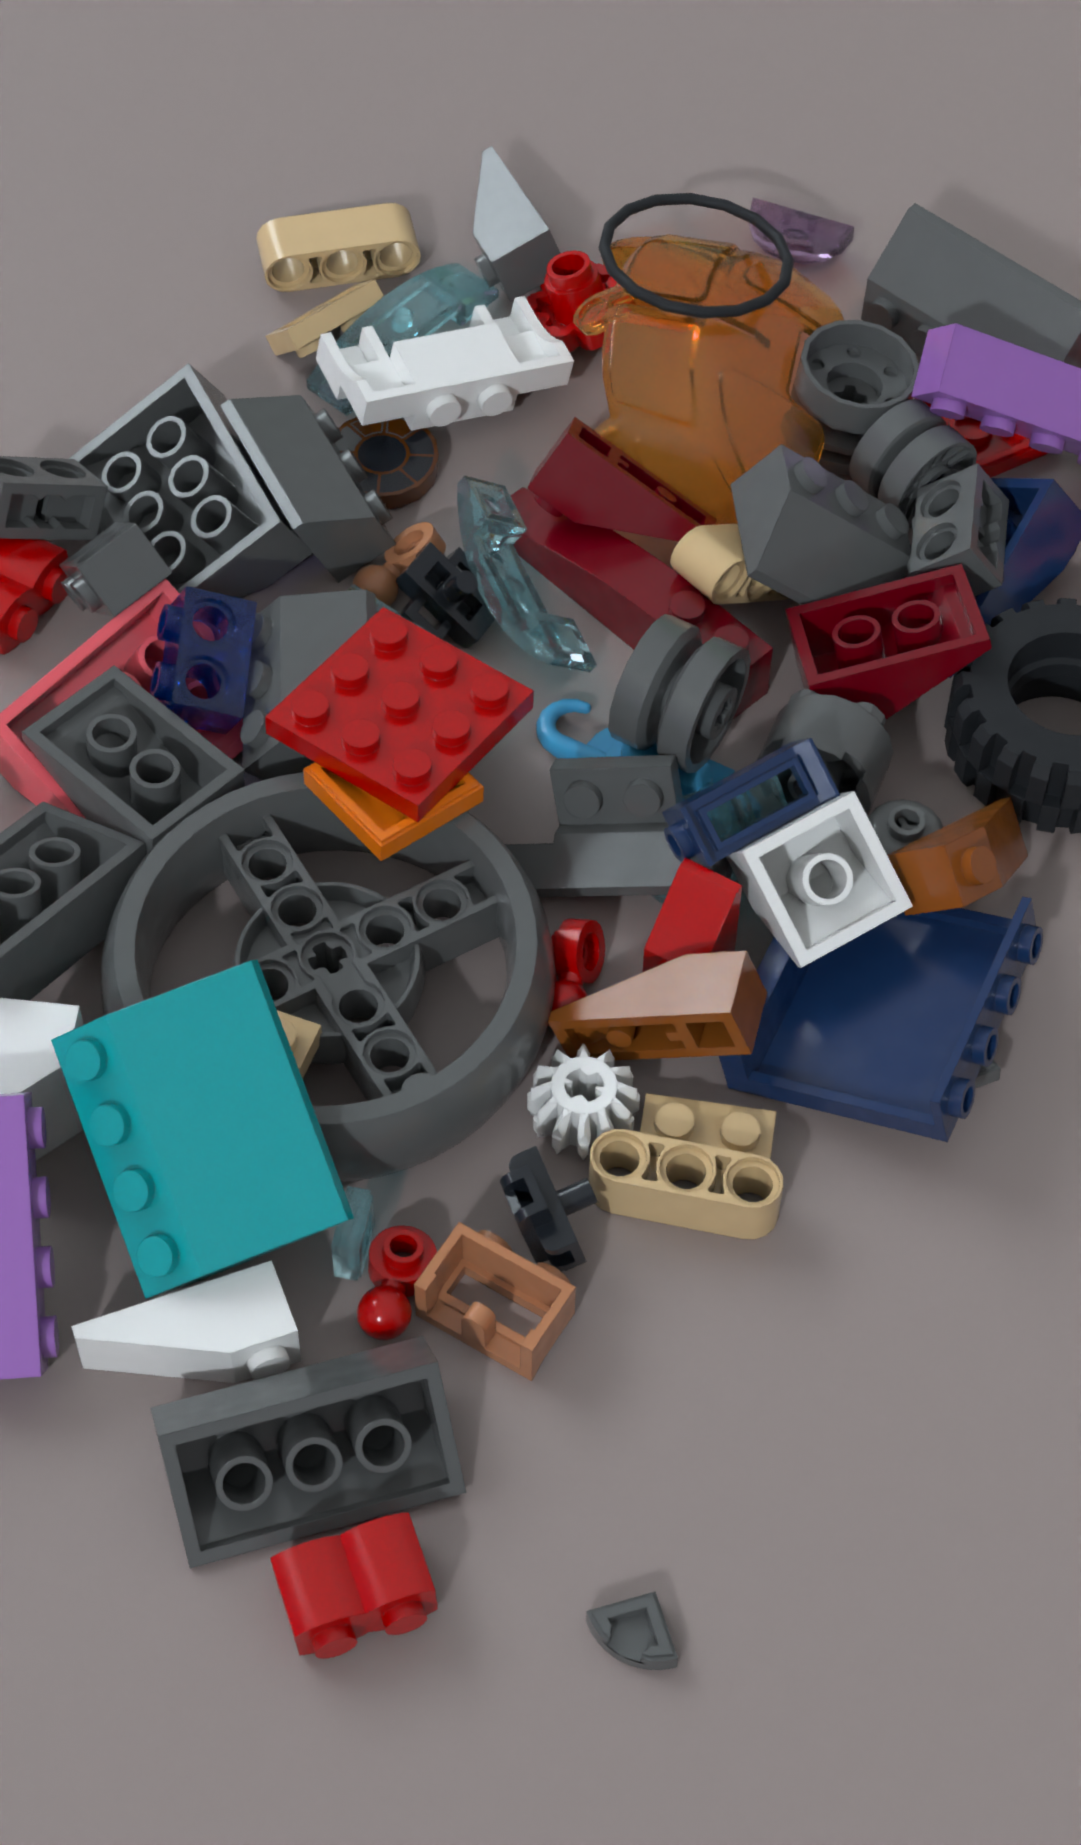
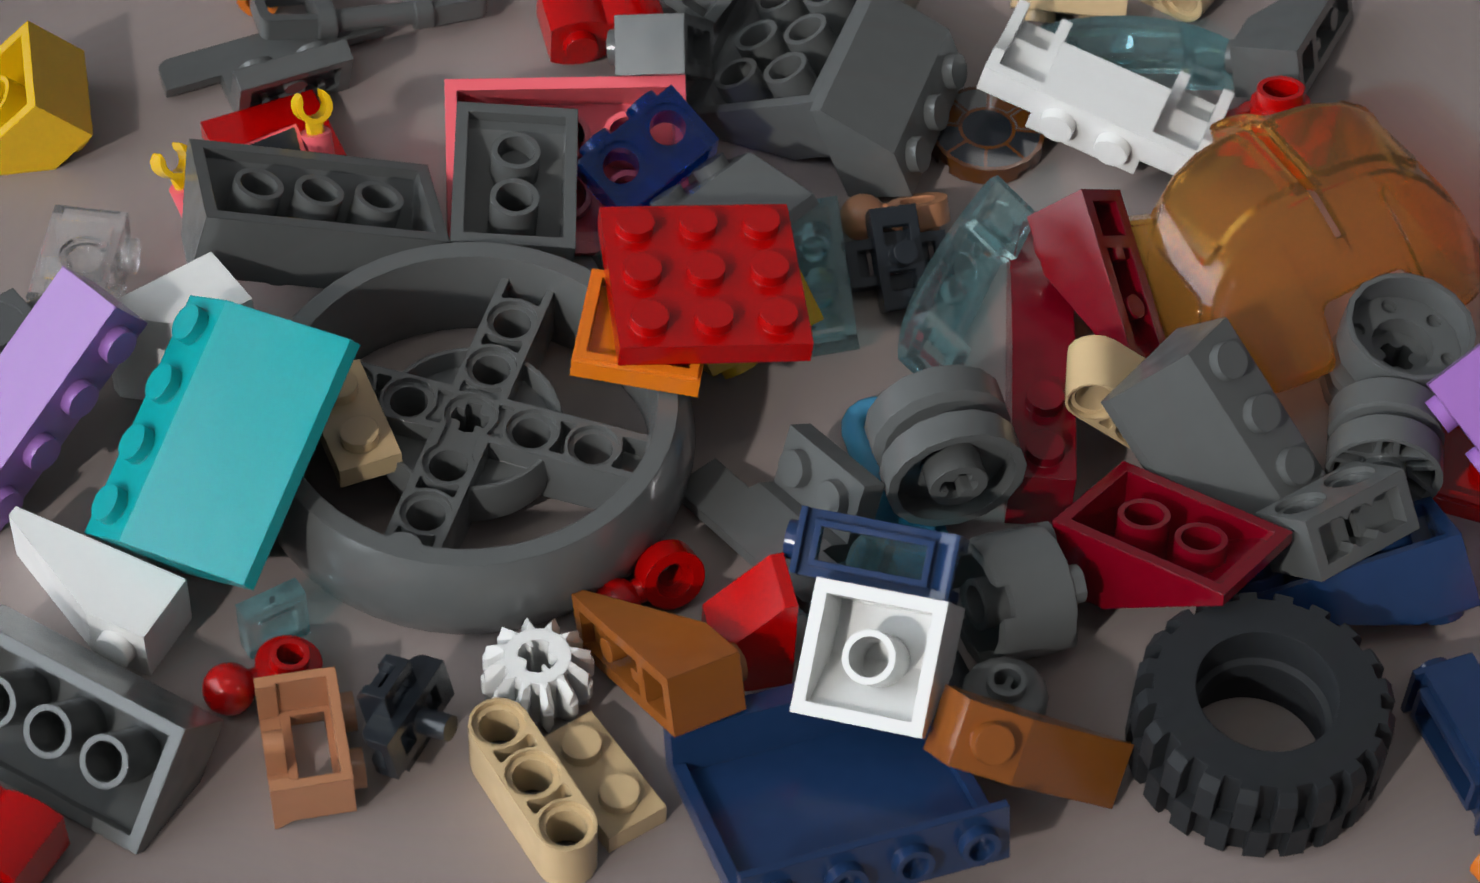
camera: 45 degrees right, 5 degrees down
(684, 308) = (1326, 196): black piece -> none

